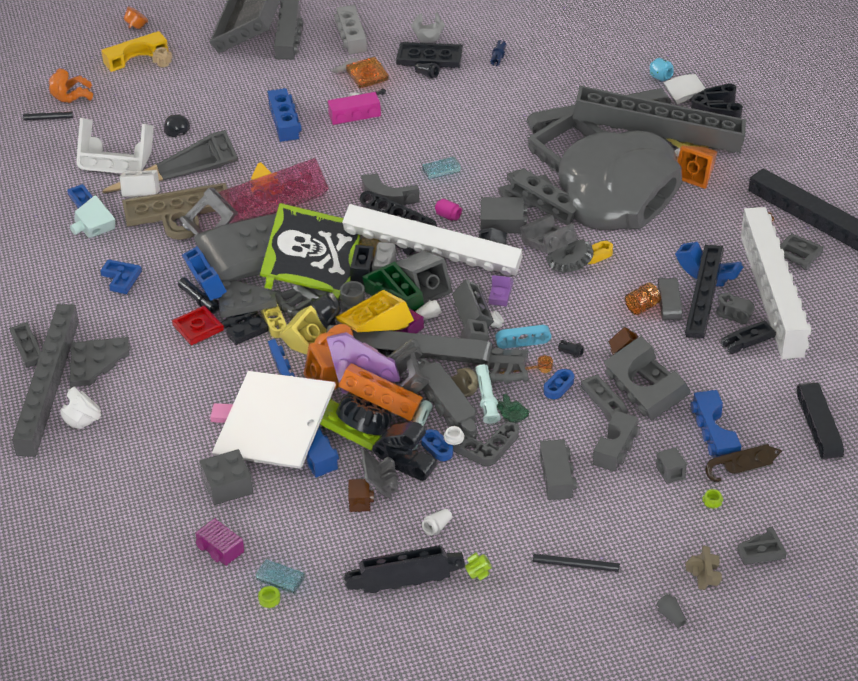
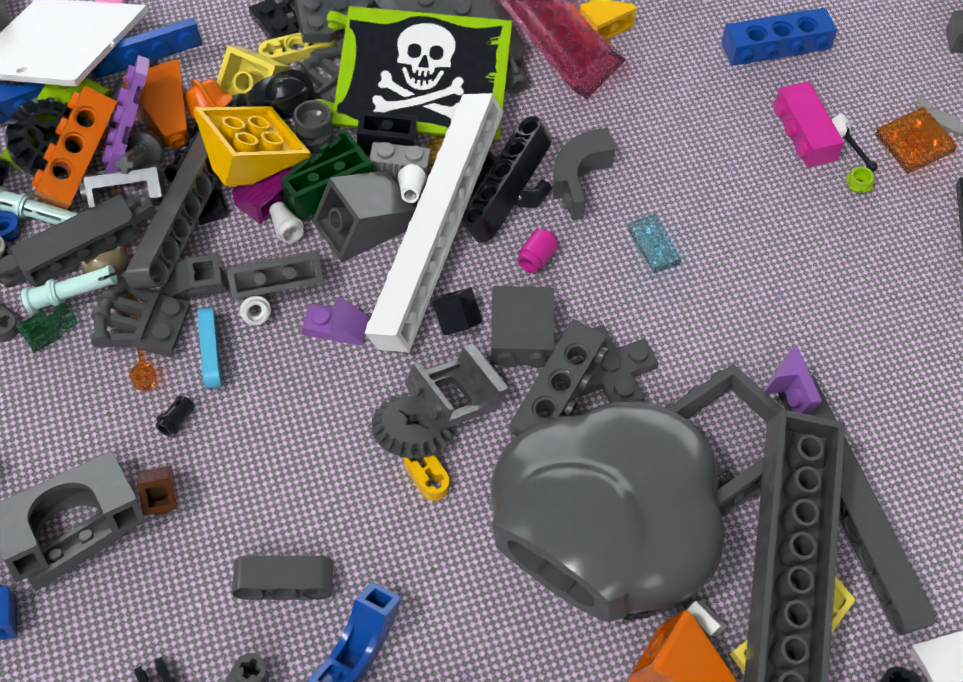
camera: 85 degrees right, 15 degrees up
(394, 94) = (860, 179): none -> lime plate
(407, 248) = (411, 182): none -> white cone
(428, 69) = (942, 226): black cone -> none
(543, 113) = (796, 382): none -> medium lavender slope
(558, 383) = (94, 395): blue plate -> none
(603, 396) = (49, 457): dark grey plate -> none
(642, 298) = (275, 526): clear orange wheel -> none
(704, 291) = (280, 631): black plate -> none

